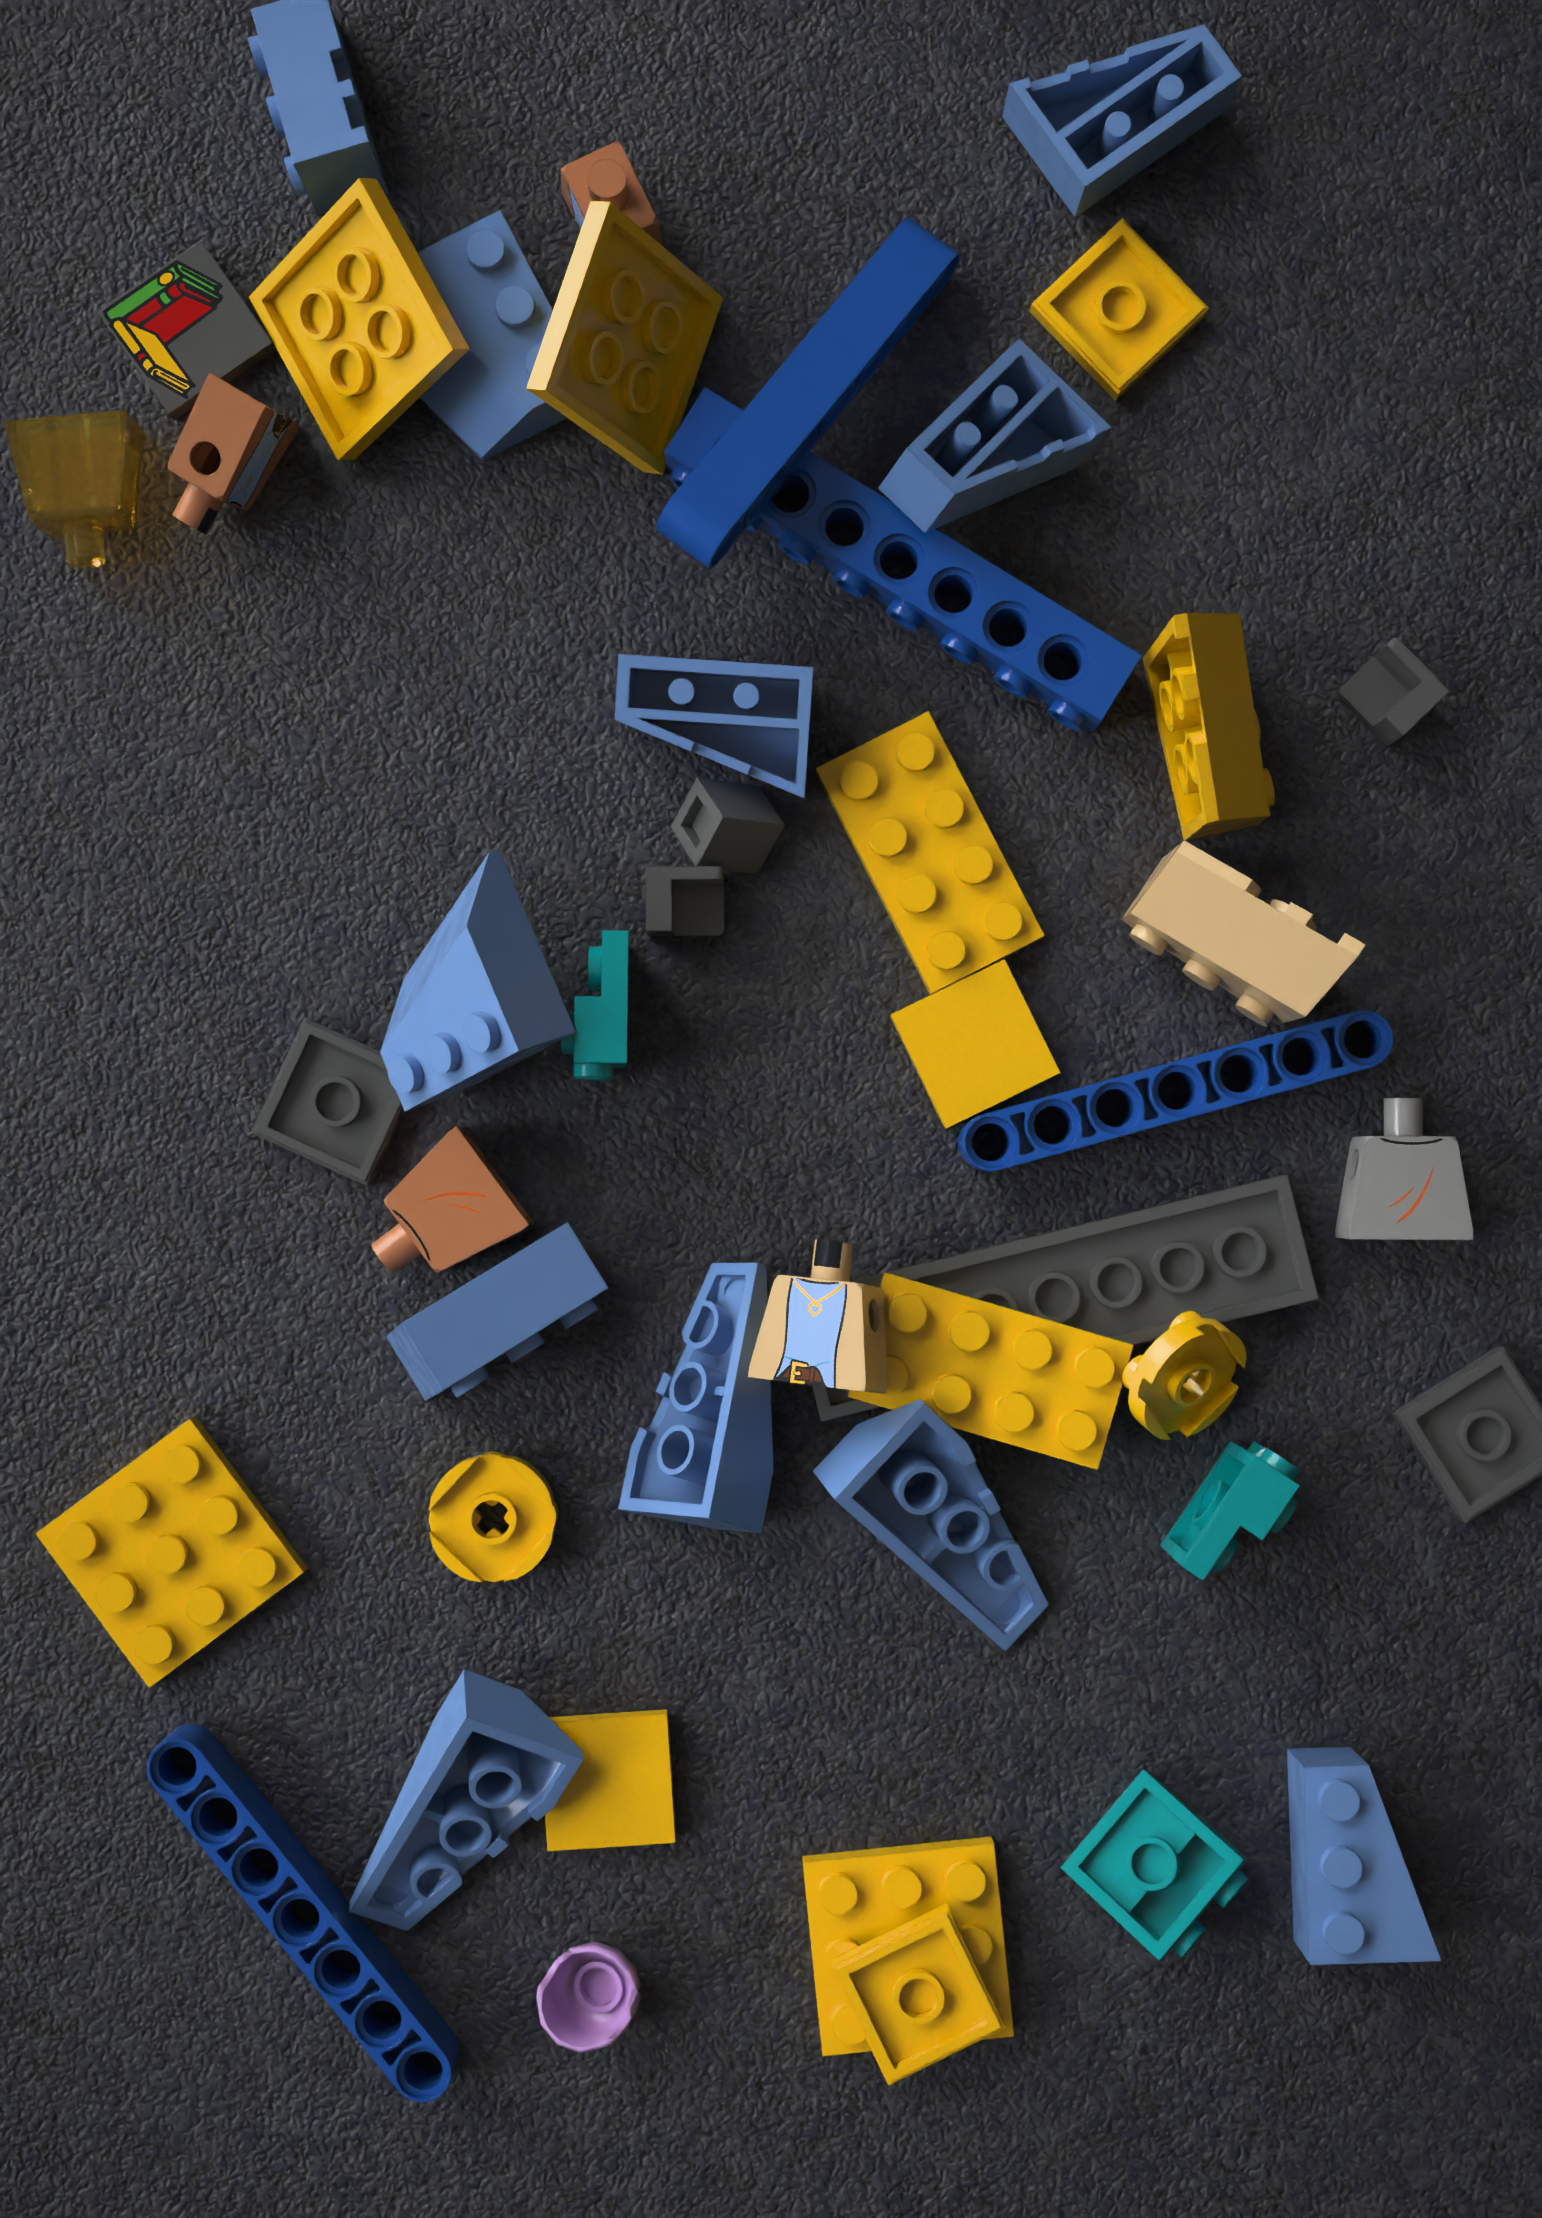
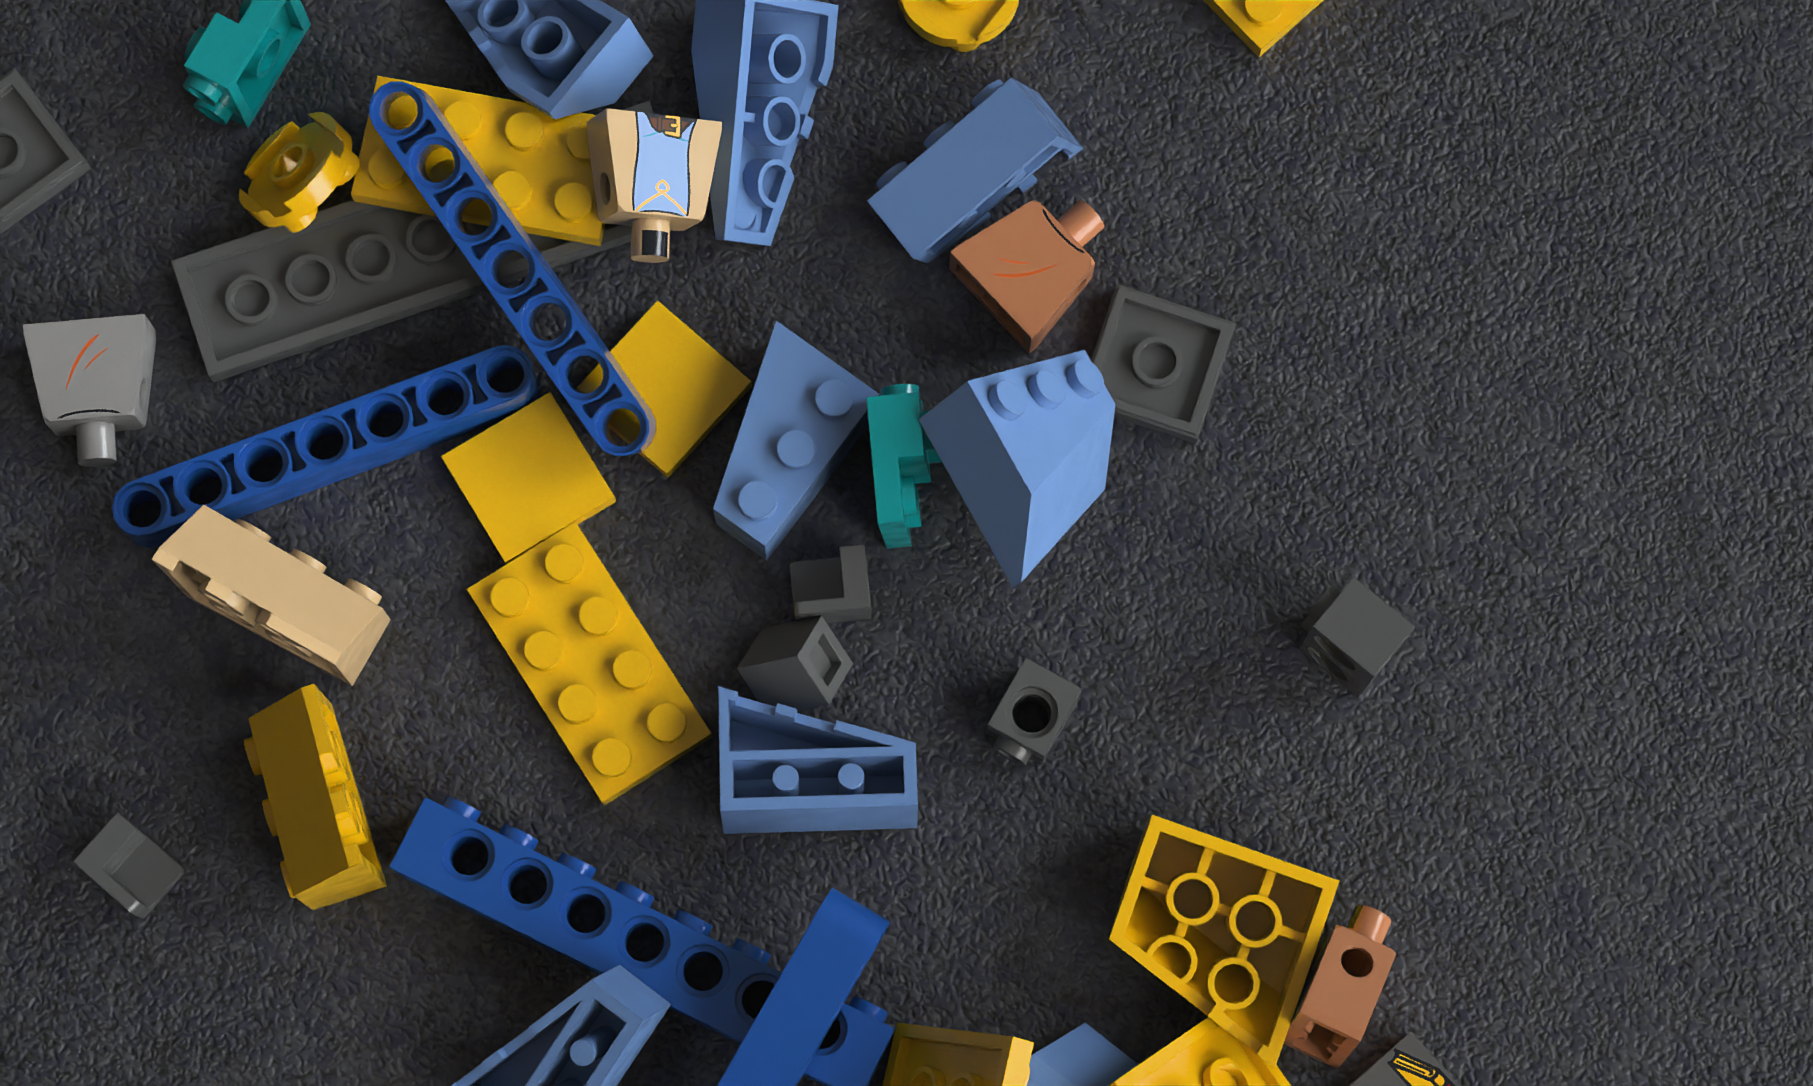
camera: 175 degrees right, 10 degrees down
(79, 477) = (1492, 950): clear yellow torso -> none
(167, 789) = (1353, 634): none -> dark grey brick
(333, 522) = (1224, 928): none -> yellow wedge
(498, 782) = (1037, 686): none -> dark grey brick
(710, 1048) = (790, 441): none -> medium blue wedge
(833, 1123) = (680, 382): none -> yellow tile
(976, 1273) = (487, 250): none -> blue beam

